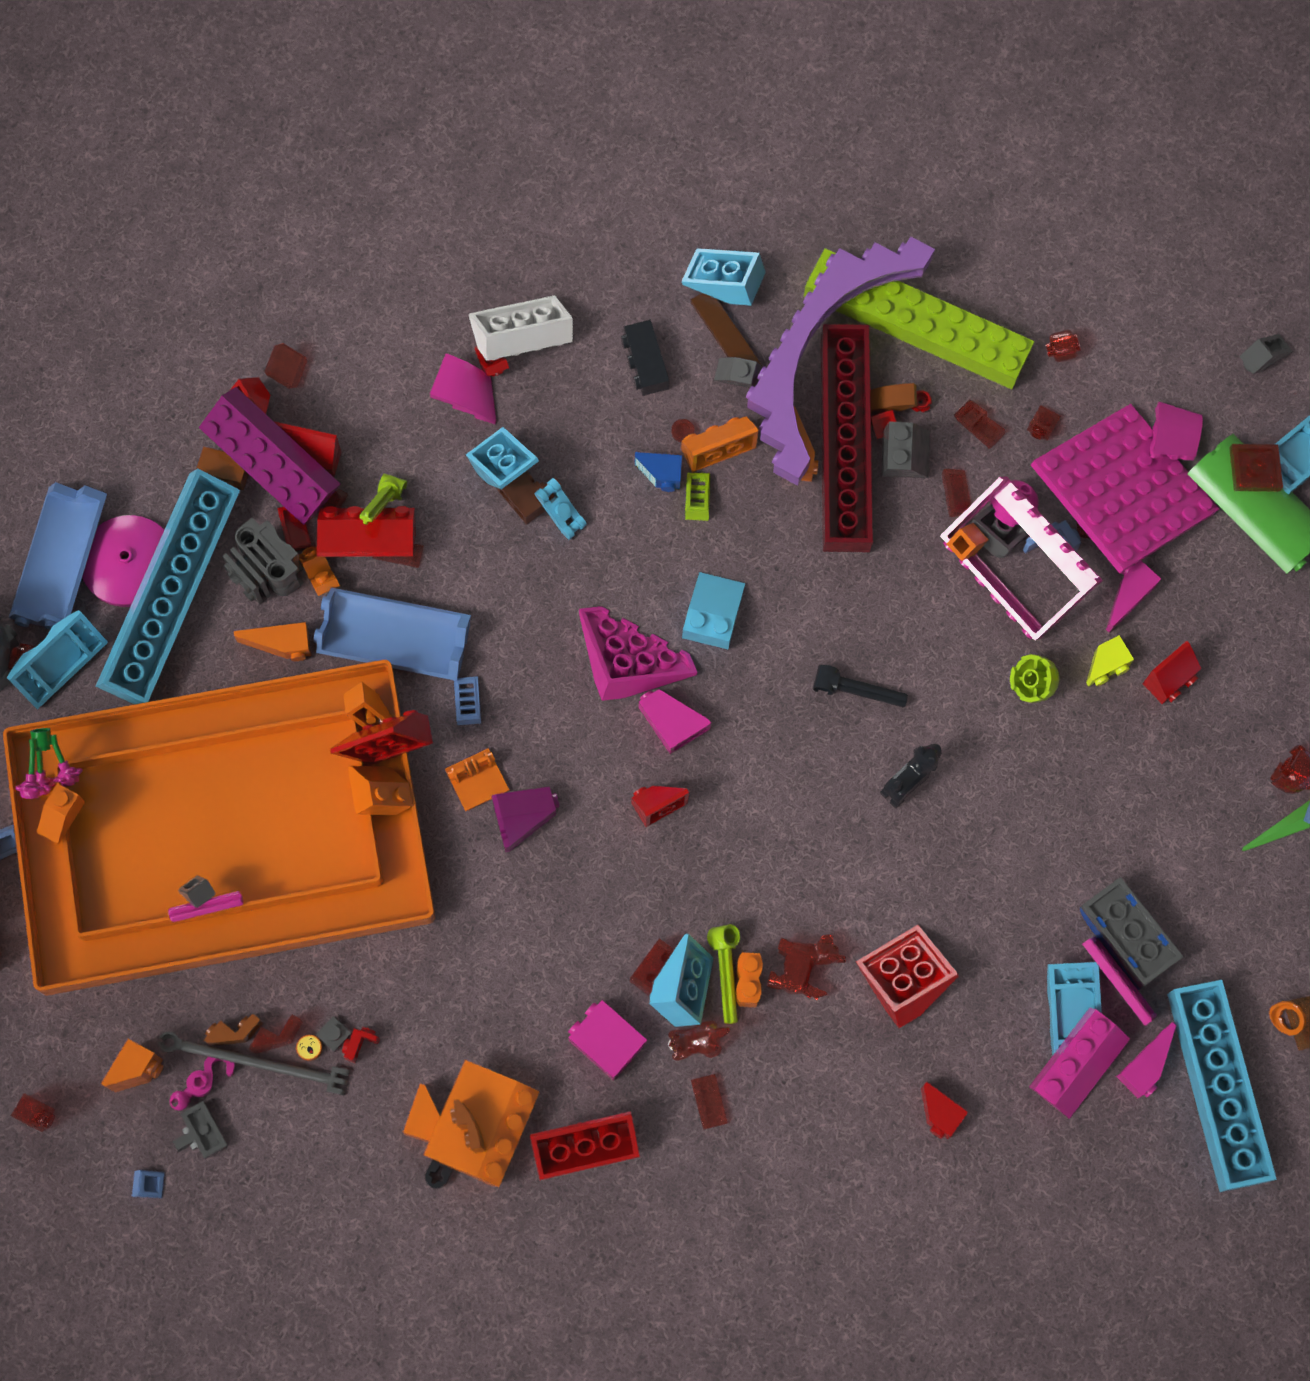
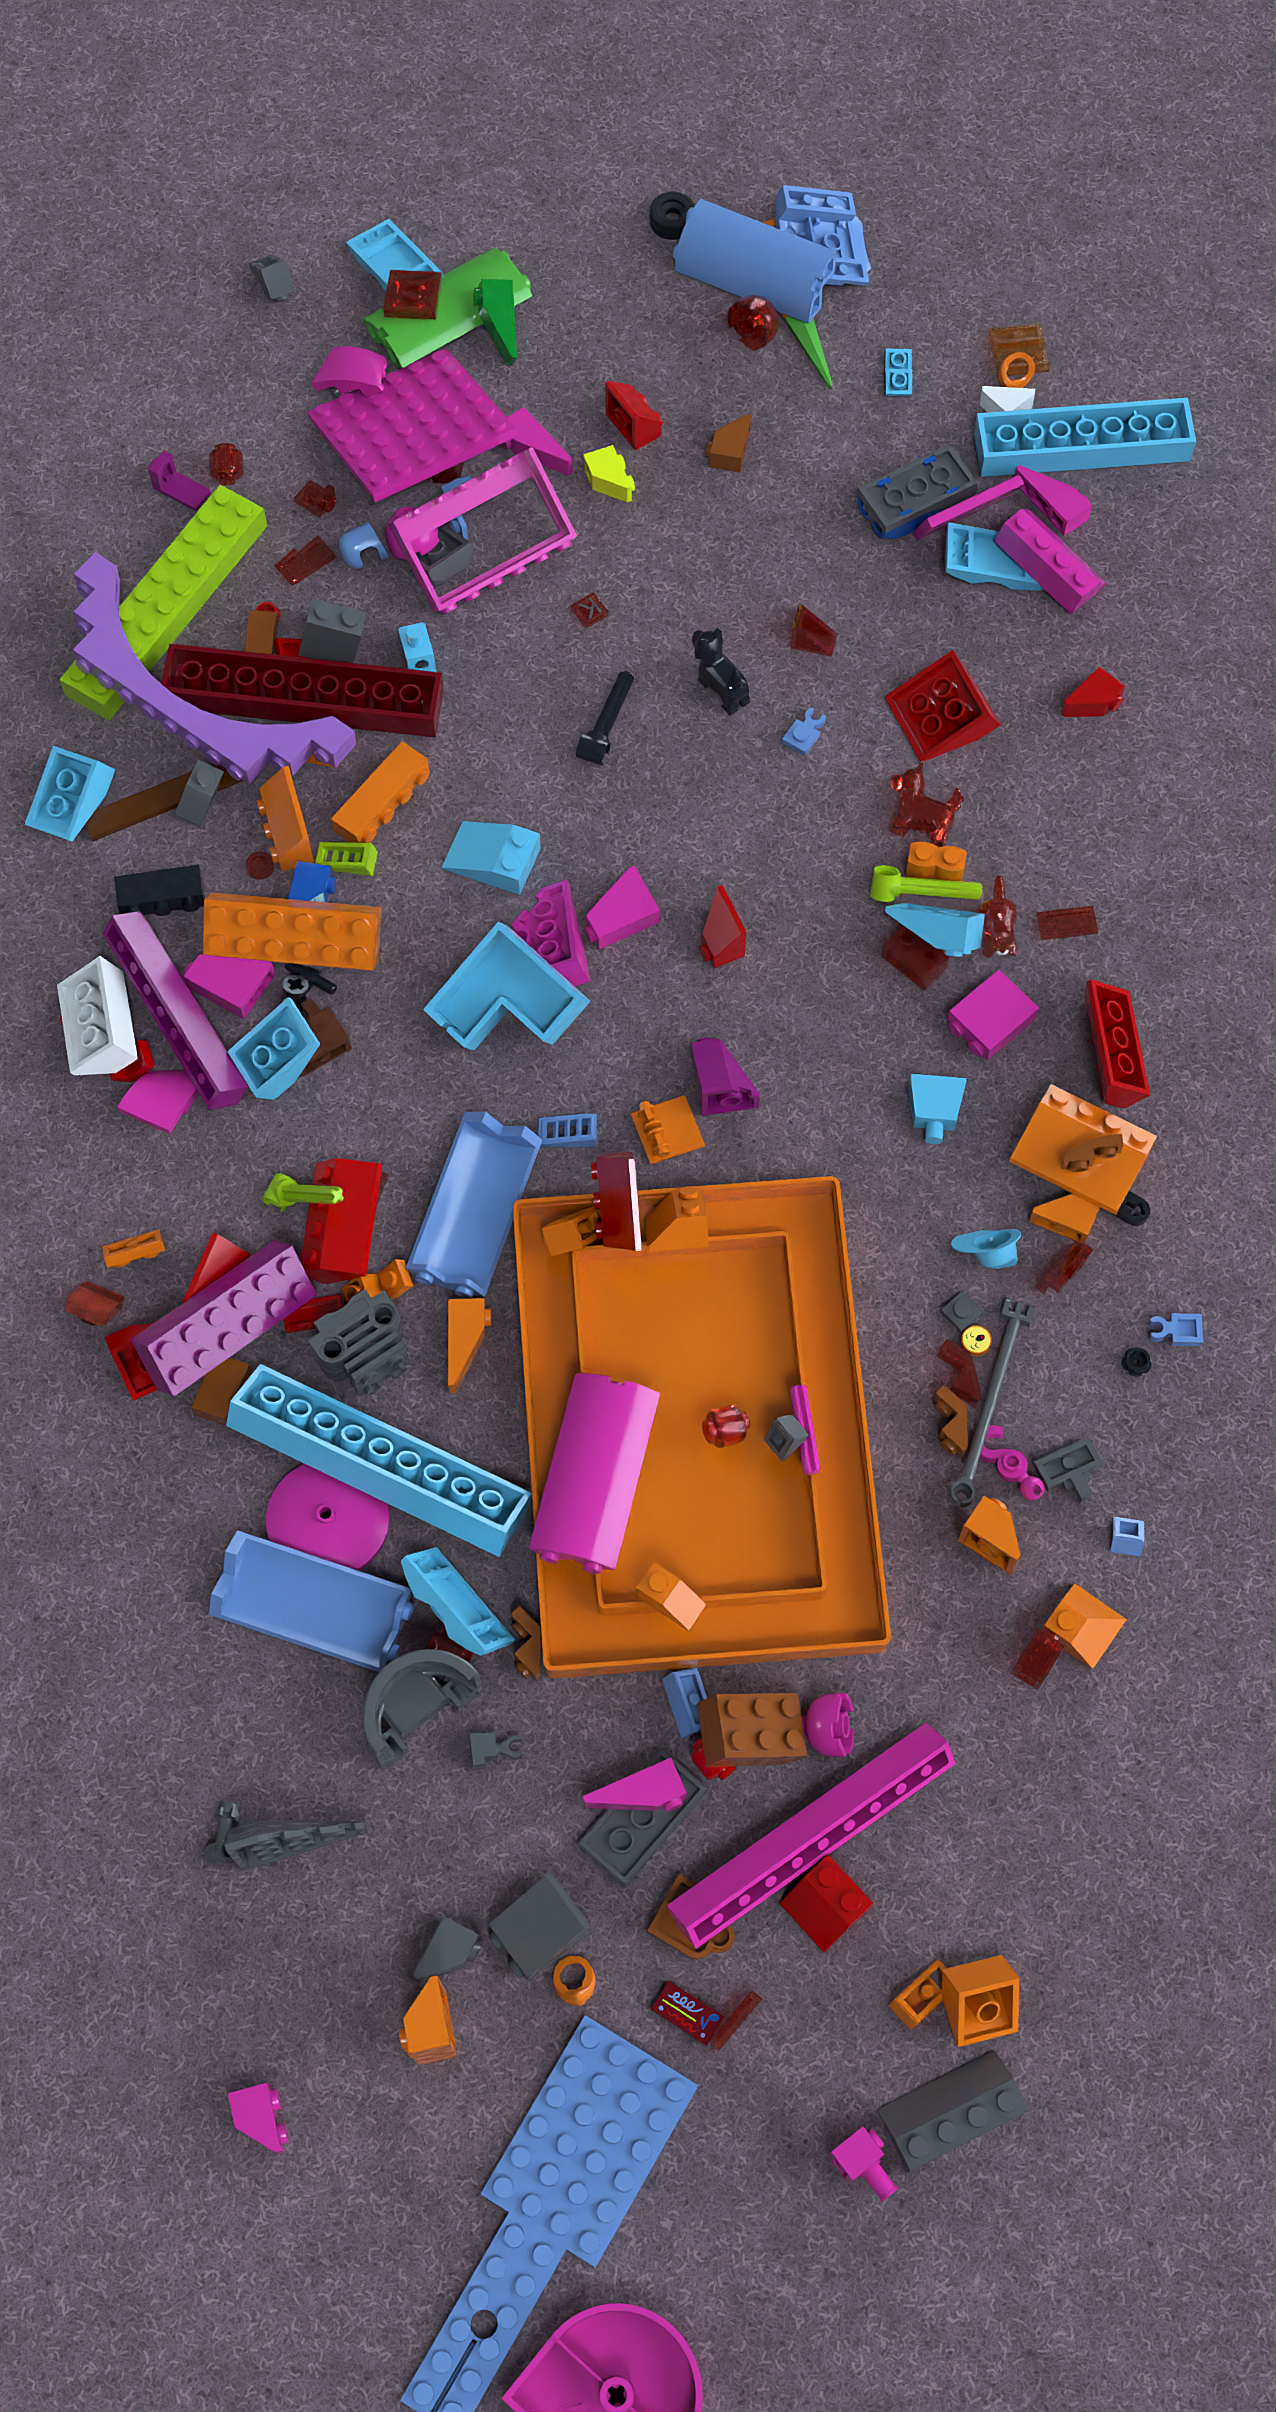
camera: 80 degrees left, 5 degrees down
(21, 717) = (530, 1653): none -> dark orange slope
(39, 783) = (623, 1626): plant -> none
(68, 1150) = (1084, 1625): none -> orange slope
(156, 744) = (594, 1472): none -> dark pink cylinder
(201, 842) = (725, 1426): none -> clear red head
(299, 1177) = (1136, 1354): none -> black plate
(330, 1222) = (1182, 1328): none -> medium blue plate
(335, 387) = (124, 1251): none -> orange plate
(353, 1045) = (979, 1287): red bracket -> none
(374, 1115) = (1065, 1267): none -> clear red slope
(391, 1049) = (990, 1247): none -> medium azure piece
(517, 997) = (935, 1104): none -> medium azure torso
(539, 383) = (175, 1010): none -> magenta brick
(560, 508) = (343, 1000): medium azure plate -> none
(570, 422) = (229, 981): none -> dark pink slope
(582, 636) = (503, 977): none -> medium azure piece
(583, 482) = (301, 983): none -> black piece
(615, 460) = (292, 931): none -> orange brick
(757, 513) = (381, 795): none -> orange brick
(867, 855) = (803, 735): none -> medium blue plate
(896, 522) = (416, 647): none -> medium azure torso
(956, 491) = (385, 595): clear red slope -> none
(967, 541) = (454, 580): orange brick -> none
(967, 662) = (589, 610): none -> clear red tile
(973, 852) = (812, 633): none -> clear red slope
(999, 461) = (356, 540): none -> medium blue helmet
(1034, 678) = (634, 537): lime cylinder -> none
(1037, 310) = (174, 484): none -> magenta bracket
(1158, 764) = (730, 445): none -> dark orange slope
(1249, 1013) = (1006, 398): none -> white slope
(1256, 543) = (497, 312): none -> green slope
(1268, 909) = (898, 372): none -> medium azure slope

